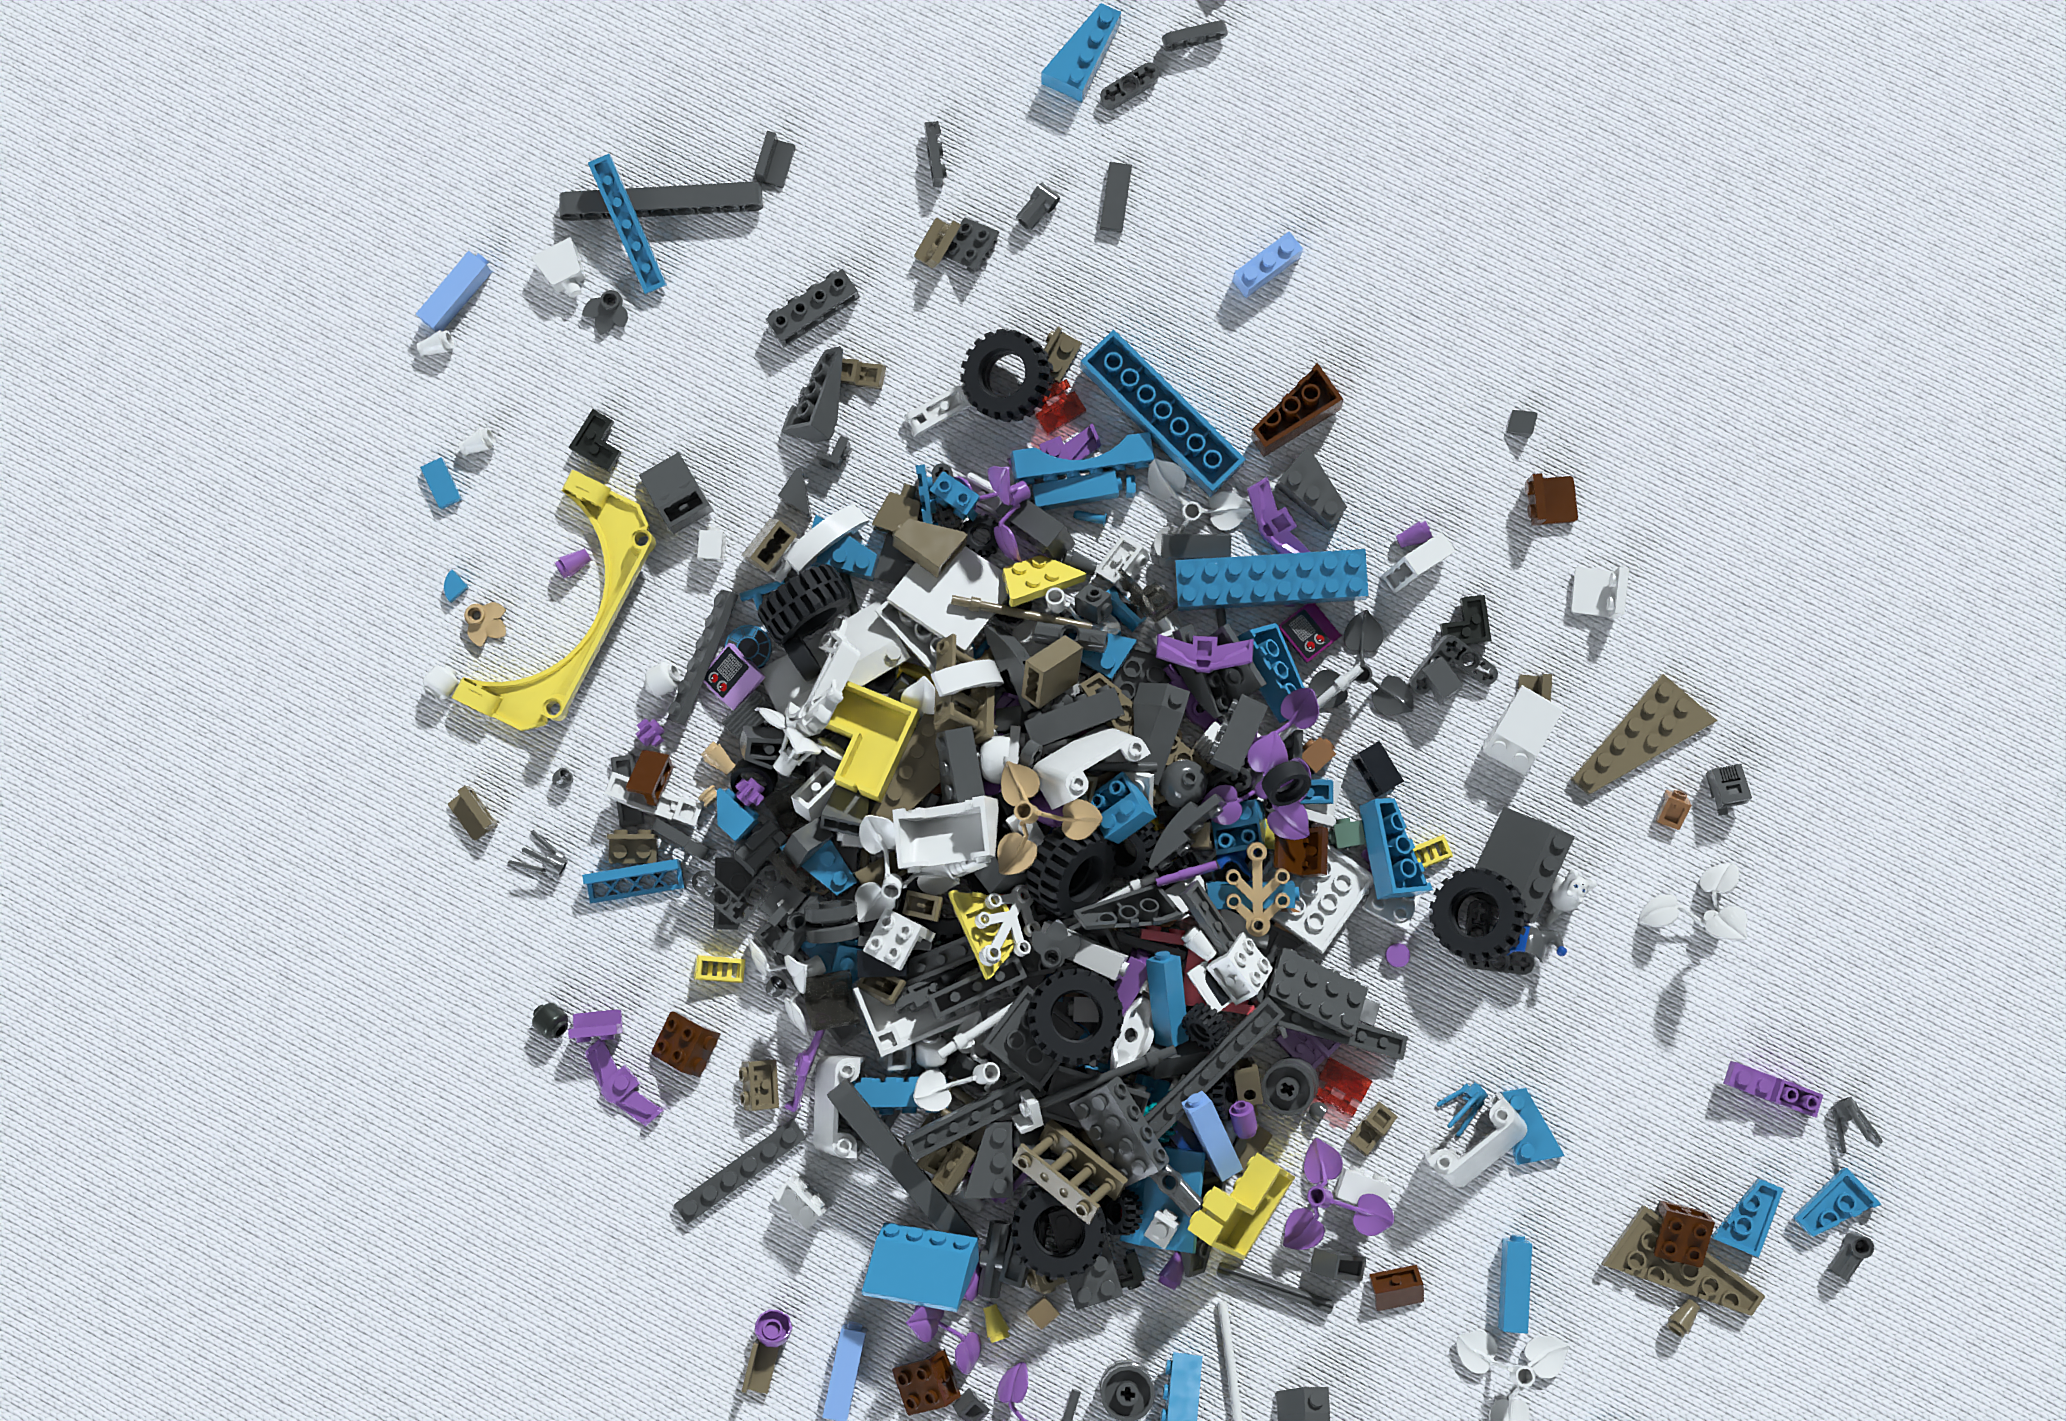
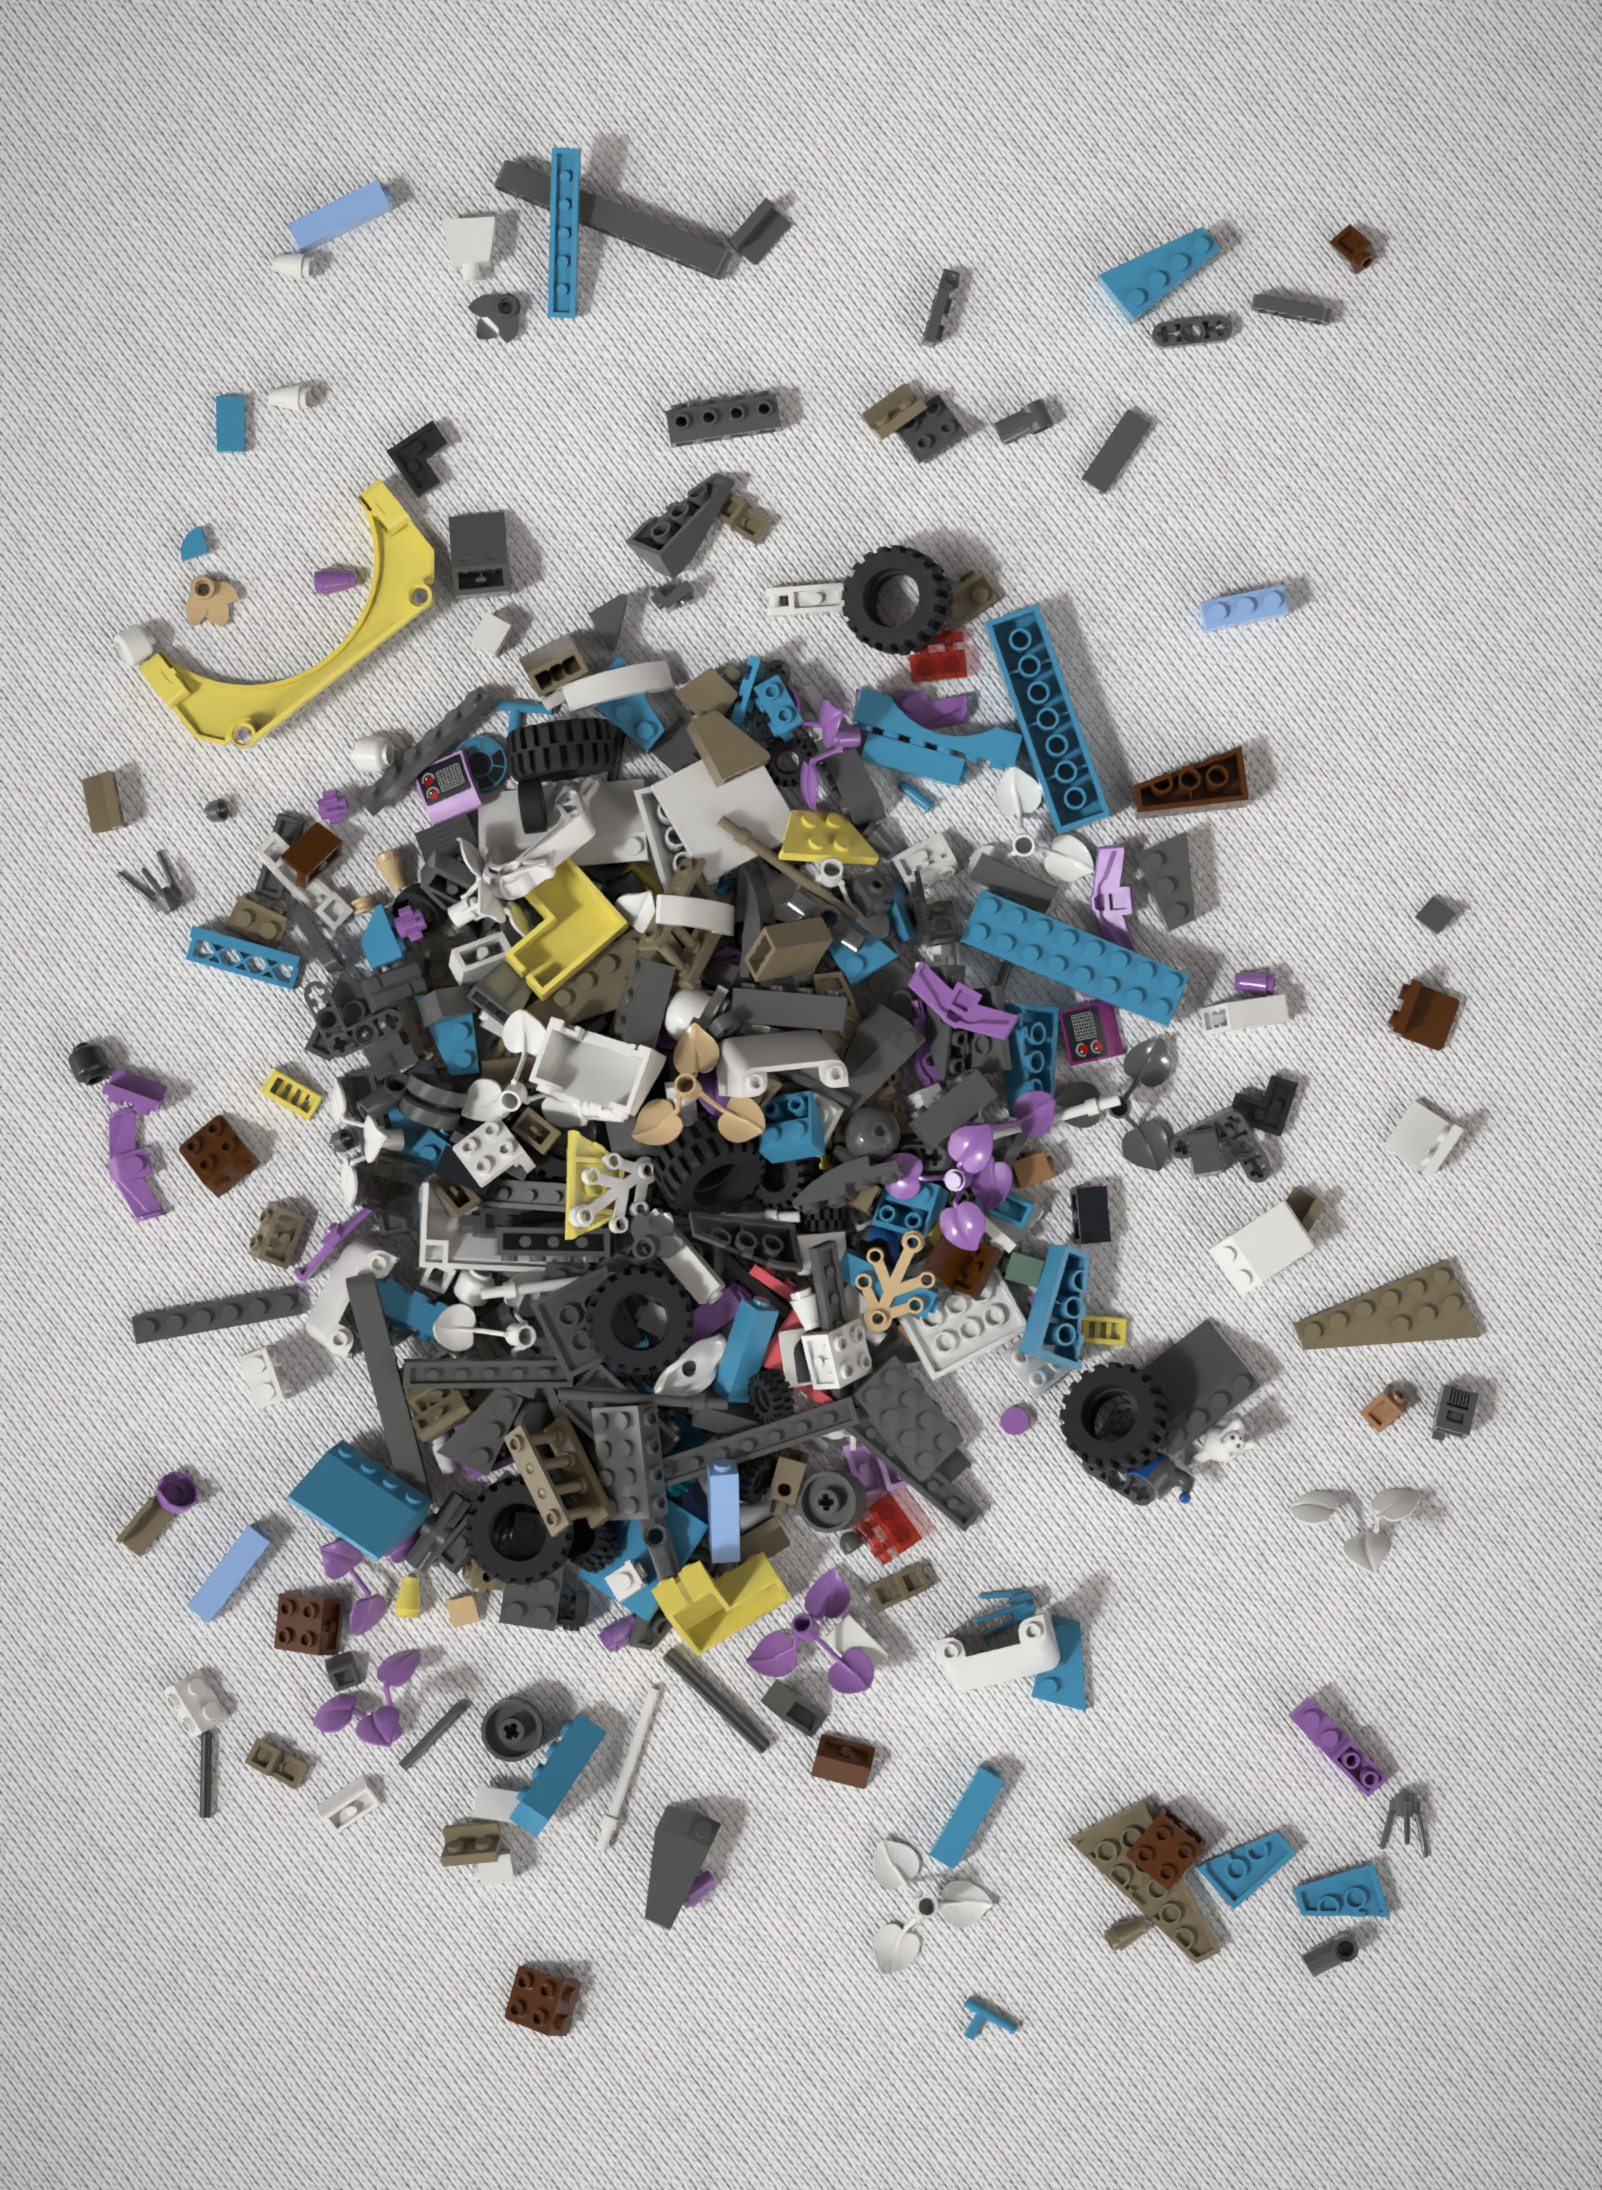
camera: 25 degrees right, 5 degrees up
(1031, 1114) = (547, 1398): white bracket -> none
(1130, 486) = (975, 782): dark azure tile -> none
(1186, 873) = (828, 1229): medium lavender piece -> none
(1243, 1119) = (765, 1511): medium lavender brick -> none
(1281, 774) = (974, 1196): black tyre -> none

